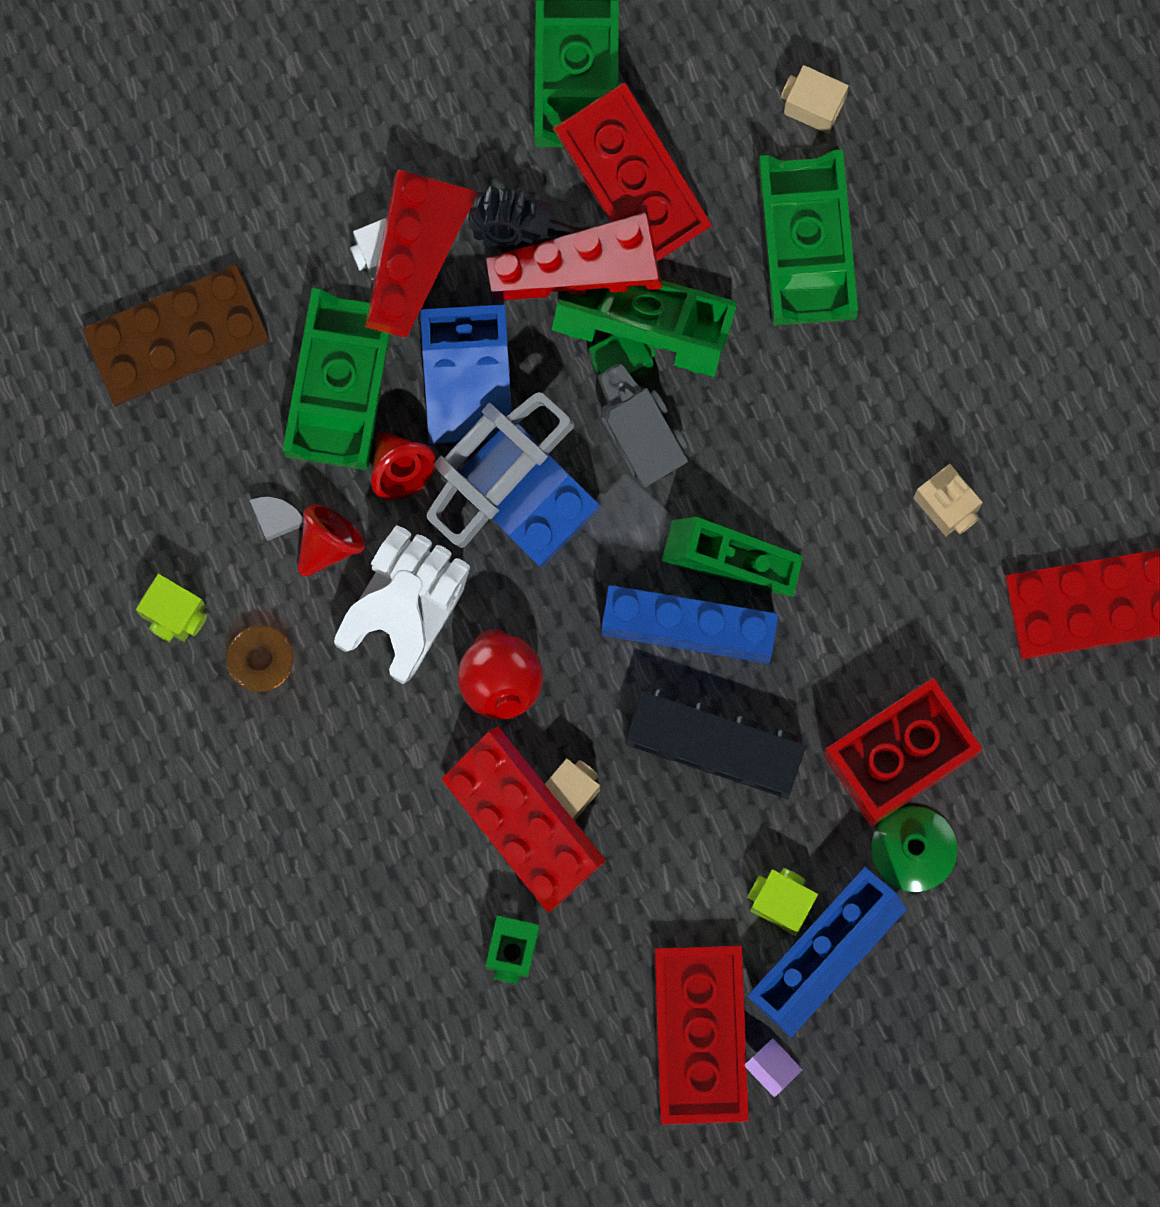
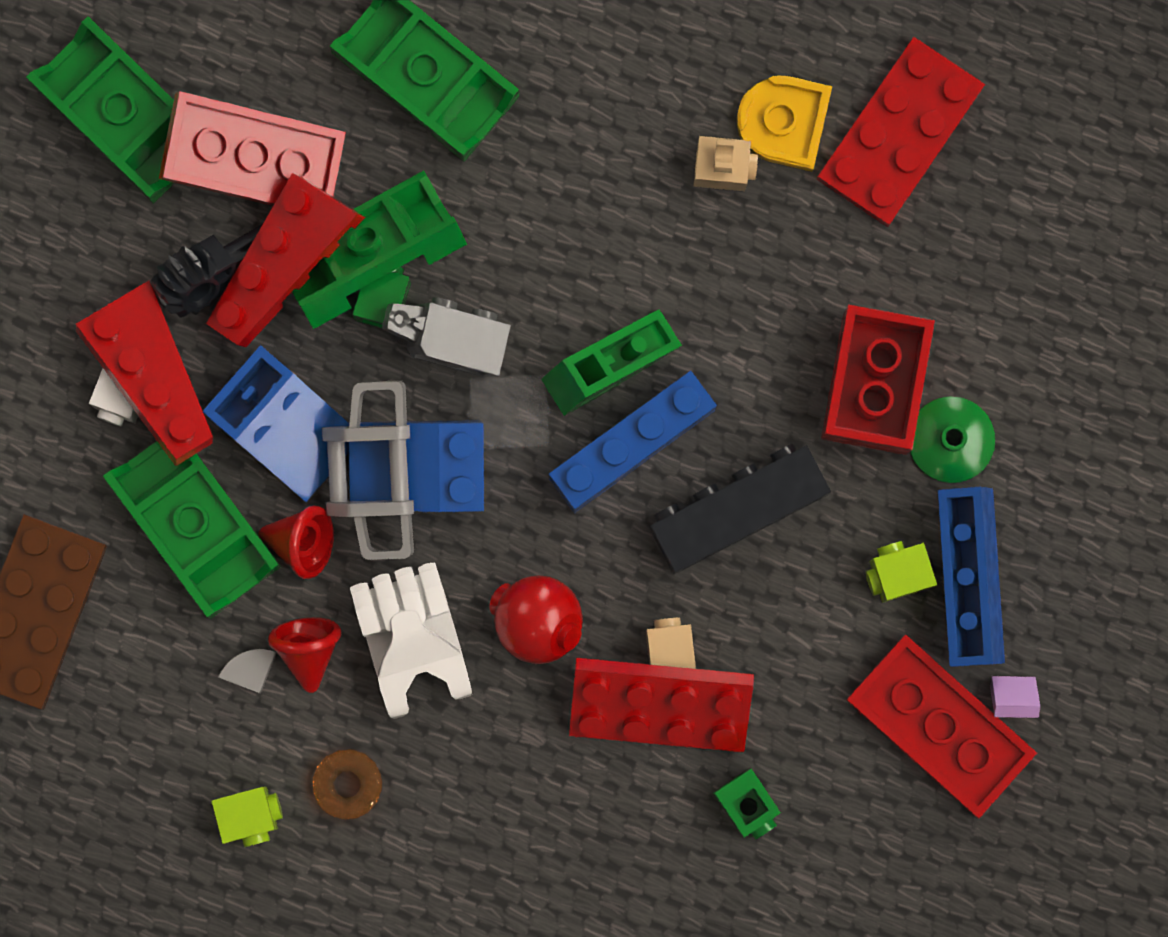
camera: 55 degrees left, 5 degrees up
(1023, 515) = (784, 120): none -> yellow tile

